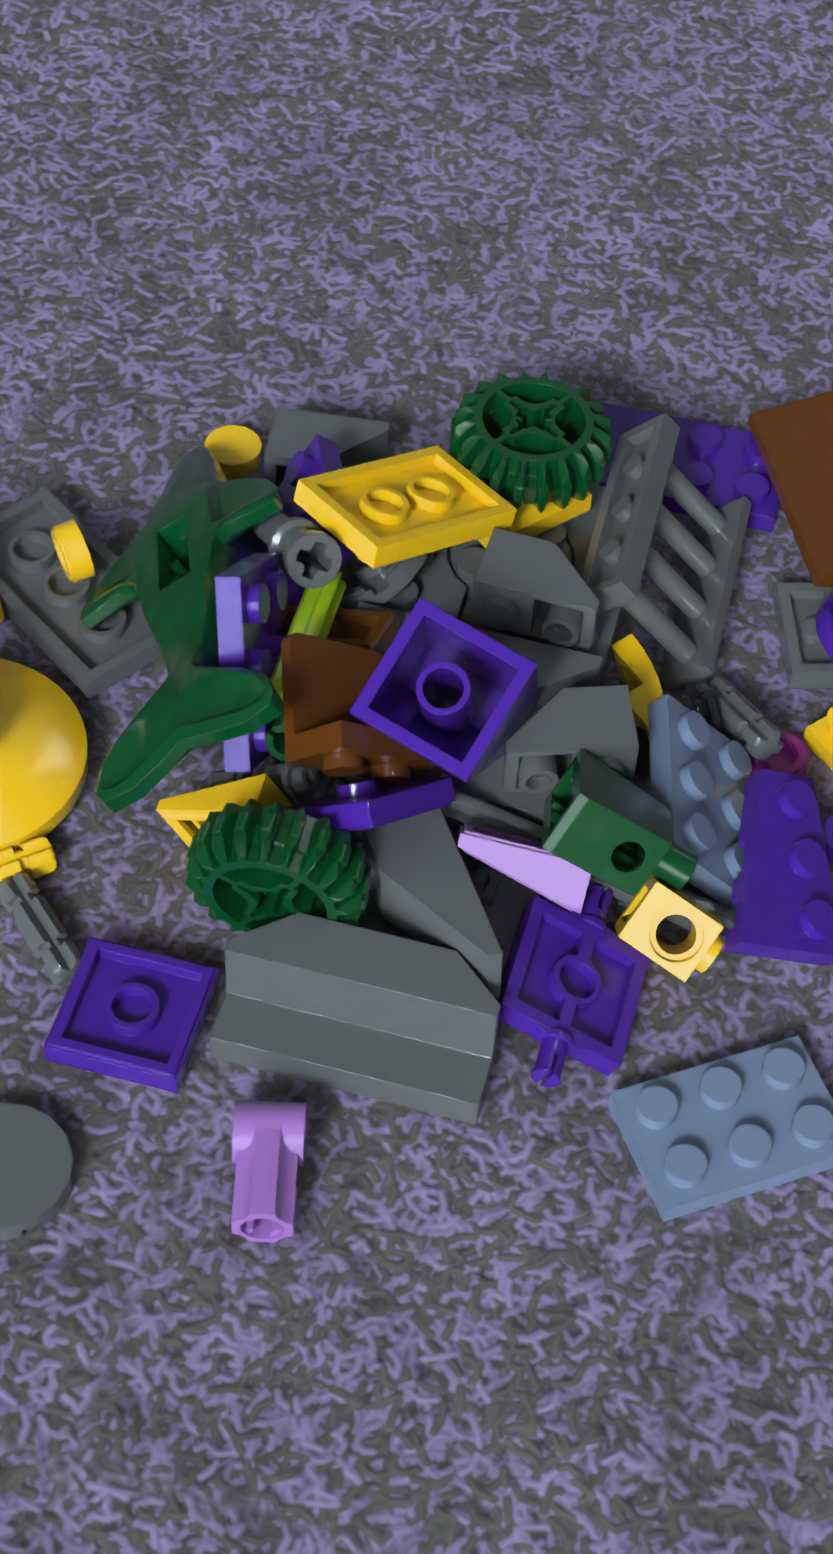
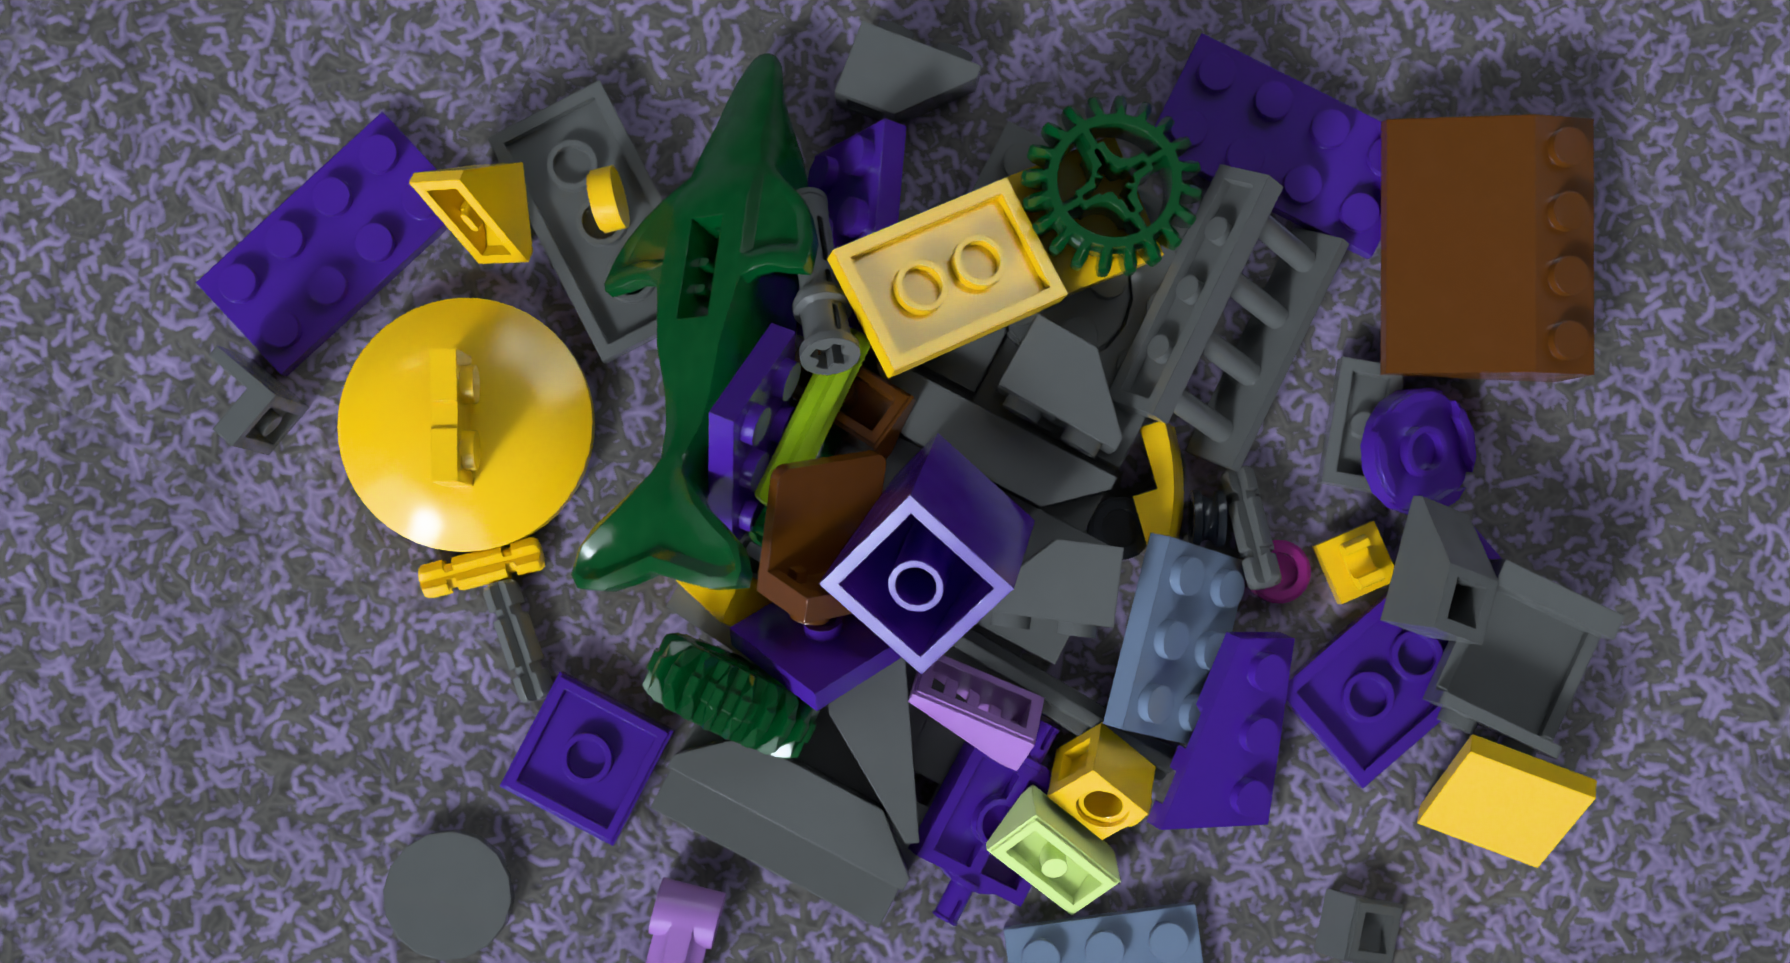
camera: 15 degrees right, 35 degrees up
(236, 450) = (811, 44): yellow tile -> none
(613, 829) = (1059, 711): dark green torso -> none
(640, 1004) = (1054, 852): none -> yellowish green slope

